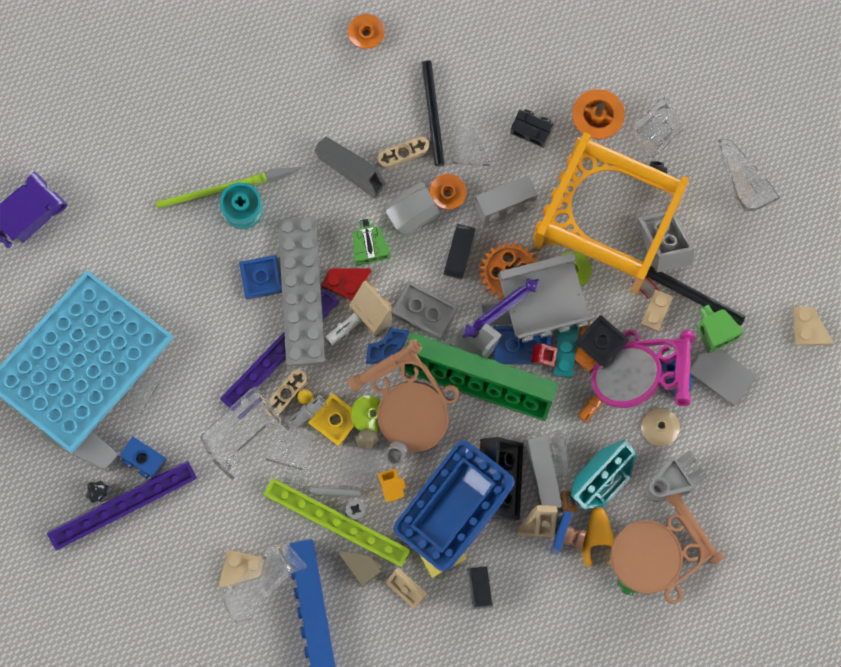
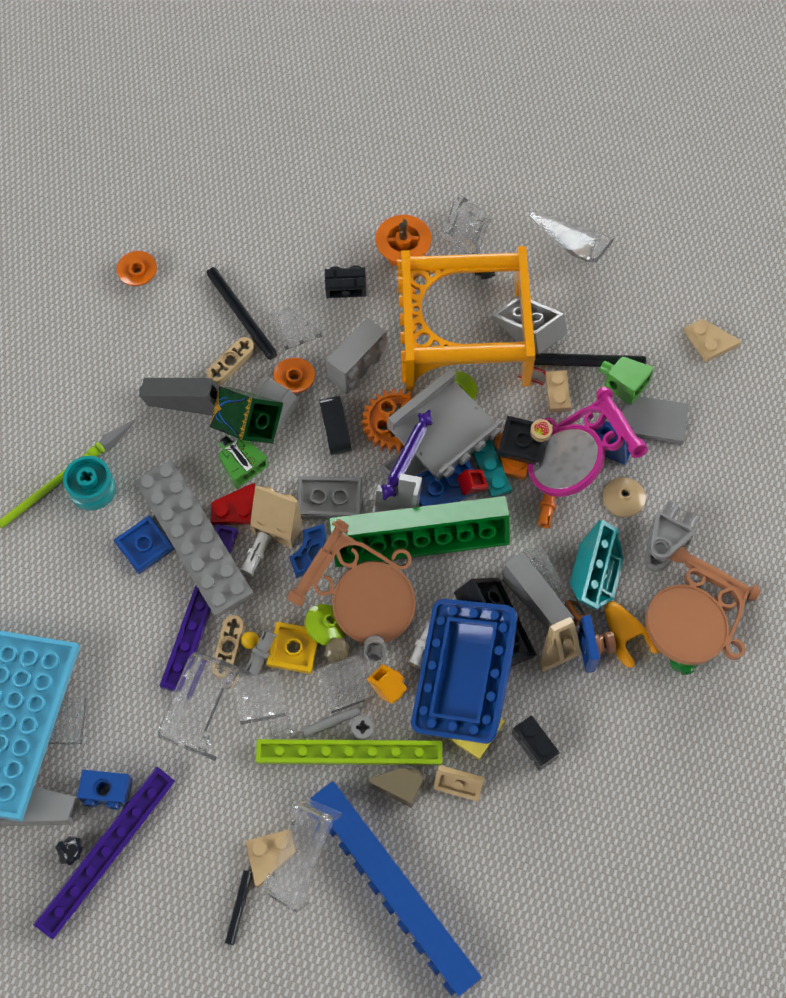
camera: 25 degrees left, 10 degrees down
(199, 595) = (238, 908): none -> black bar
(390, 210) = (246, 415): none -> dark green slope
(427, 473) = (417, 655): none -> white pin
(619, 341) = (541, 430): none -> tan tile

